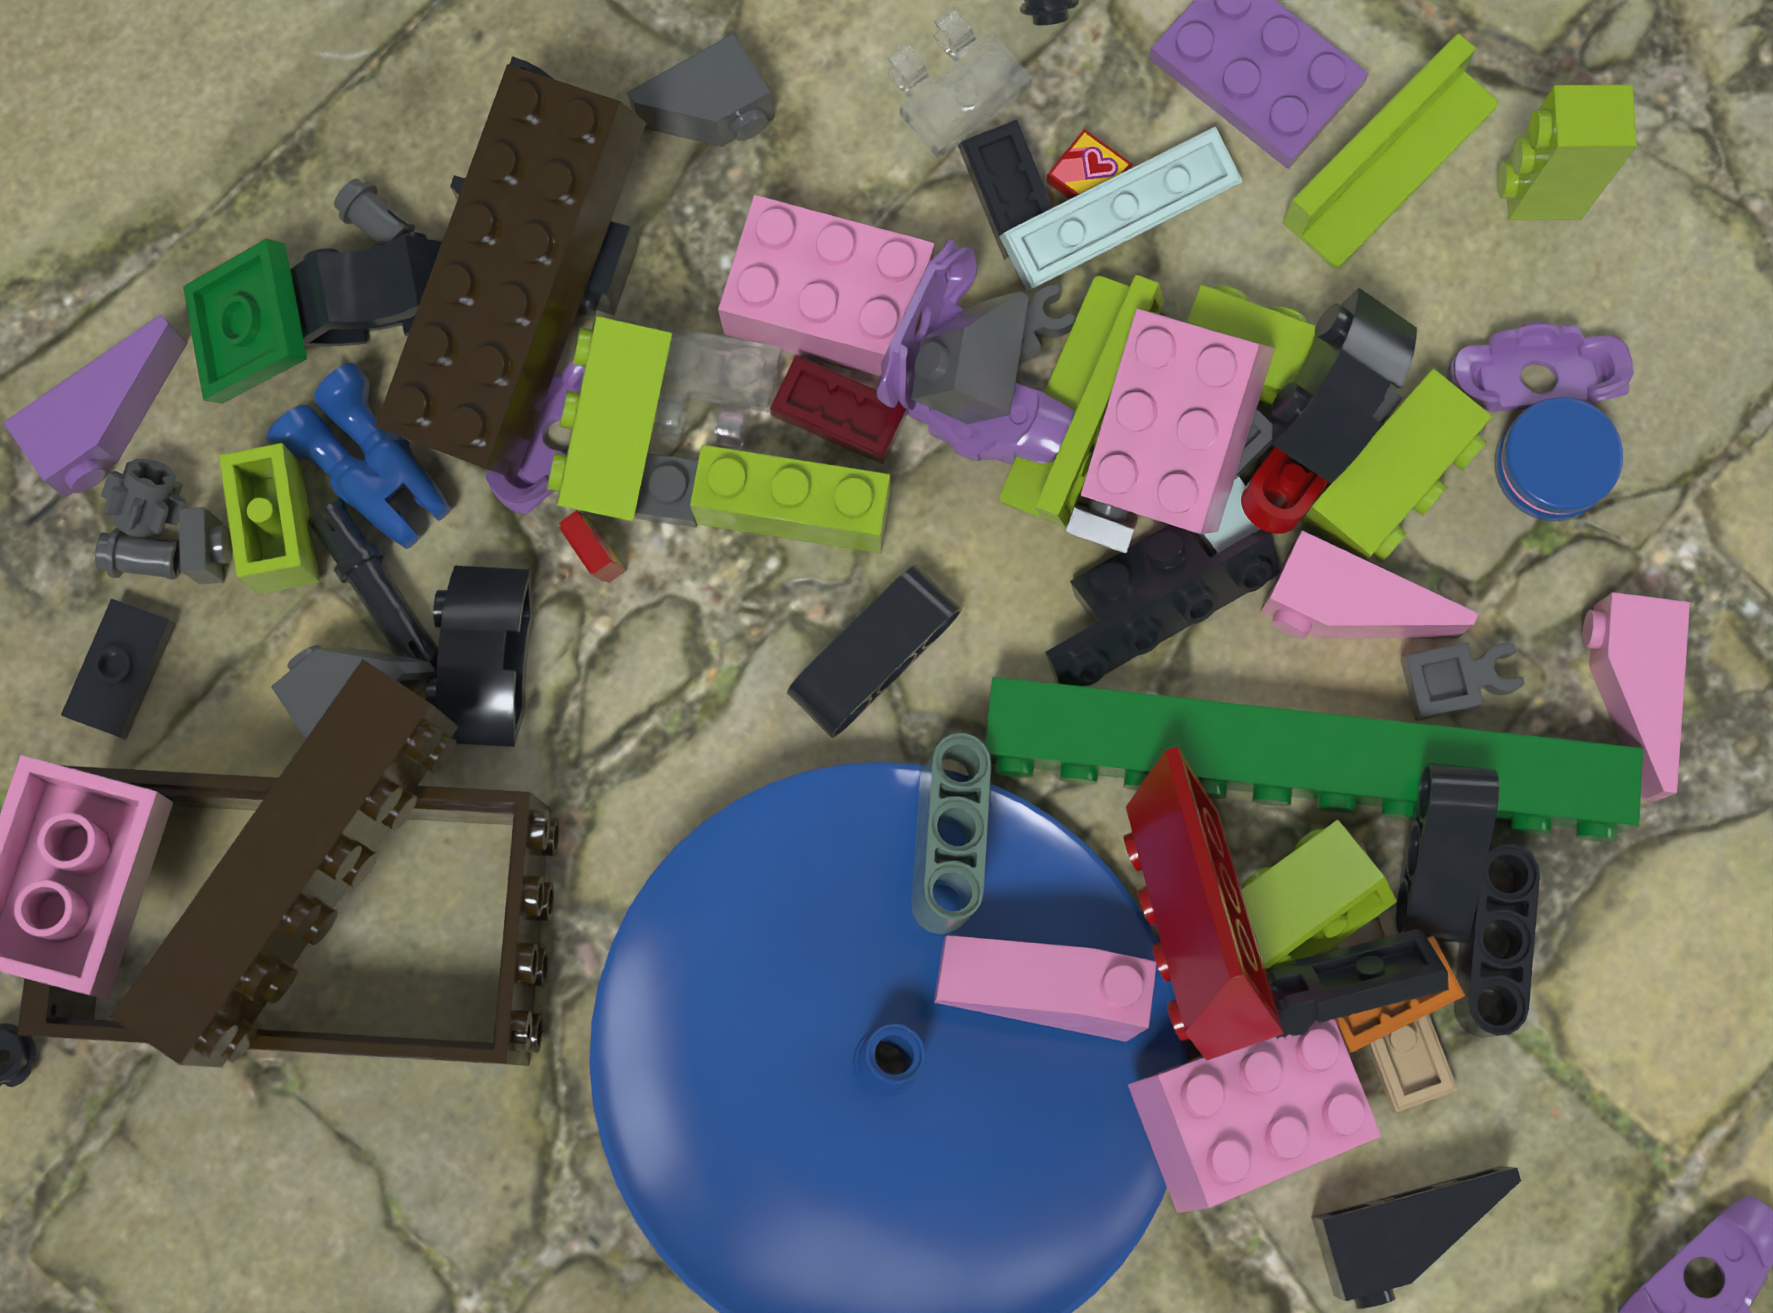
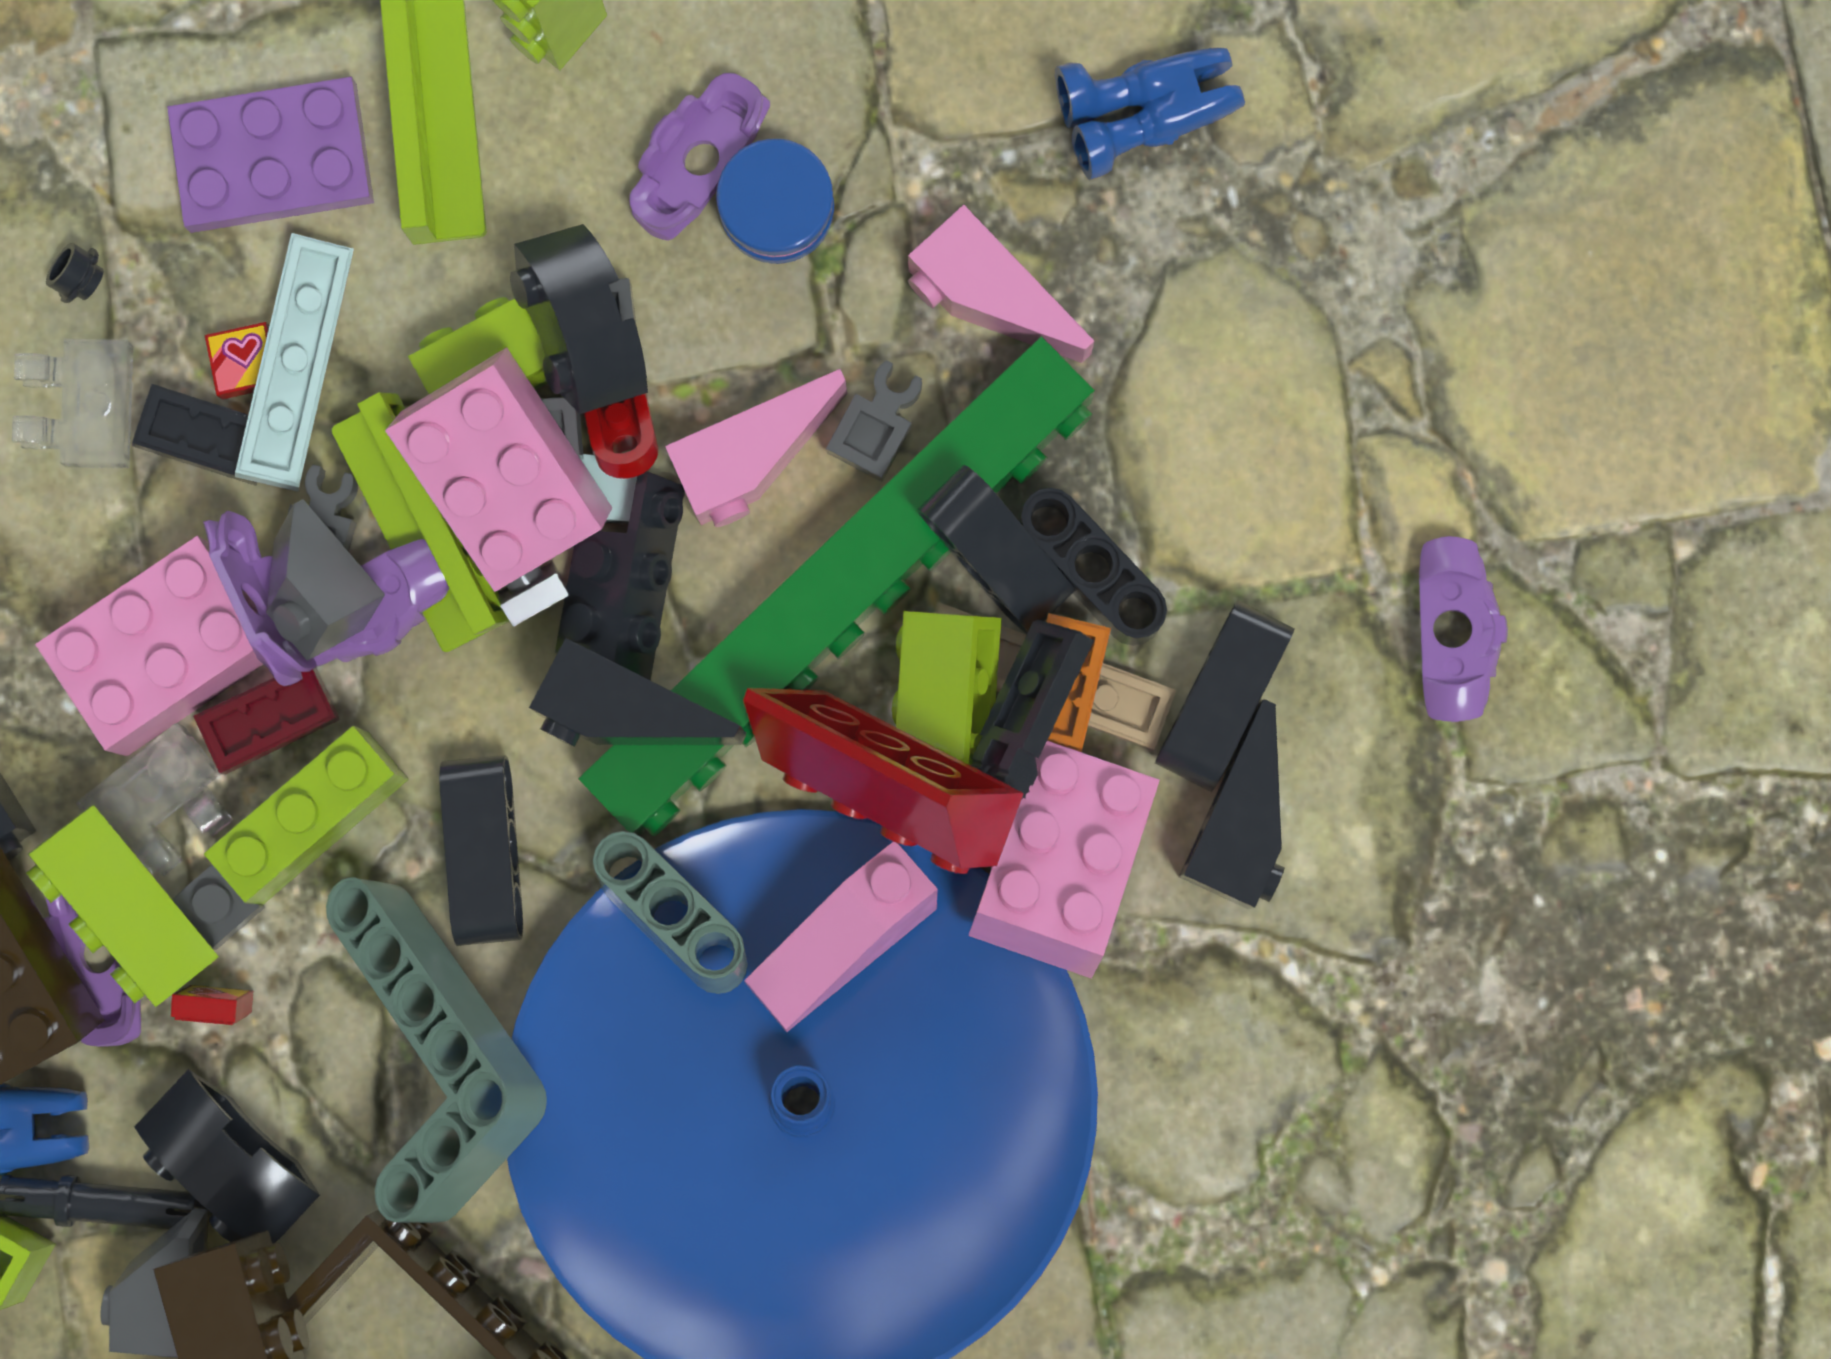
camera: 50 degrees left, 5 degrees up
(706, 802) = (487, 1081): none -> sand green beam
(1076, 660) = (616, 706): none -> black slope
(1400, 470) = (682, 329): lime brick -> none
(1488, 1133) = (1224, 696): none -> black beam

